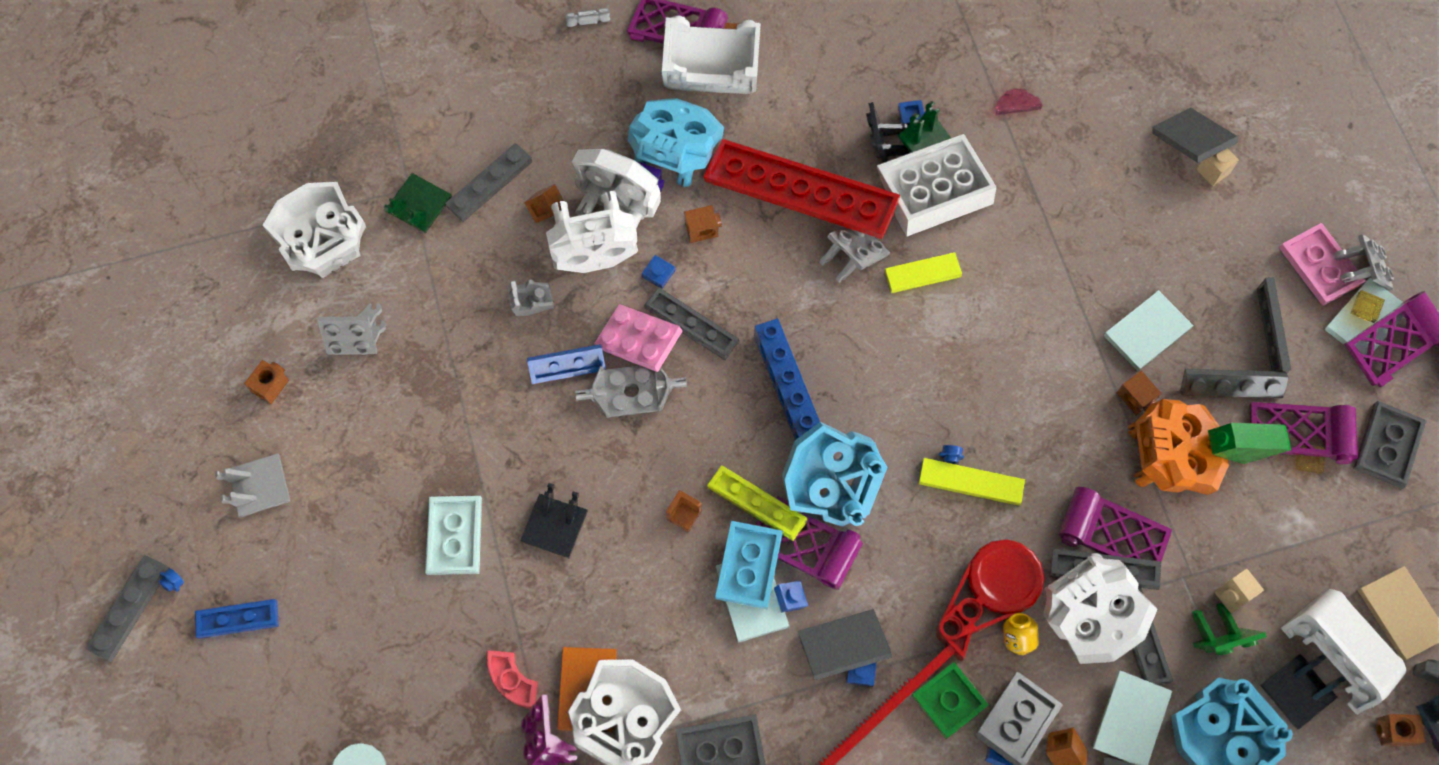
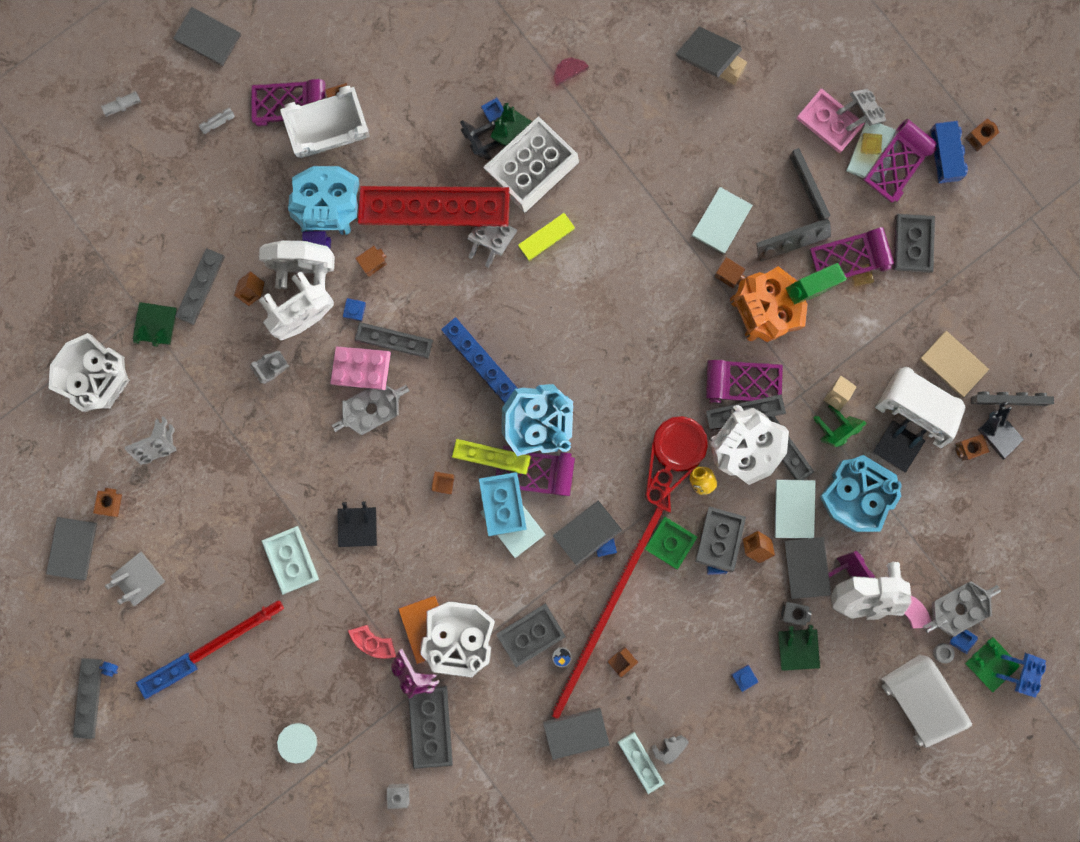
camera: 20 degrees left, 15 degrees up
(198, 419) = (71, 548): none -> dark grey tile
(348, 596) = (238, 630): none -> red axle
(566, 364) = (316, 407): plate -> none
(791, 596) = (539, 513): plate -> none
(951, 454) = (613, 369): blue plate -> none
(972, 481) = (634, 383): neon yellow tile -> none

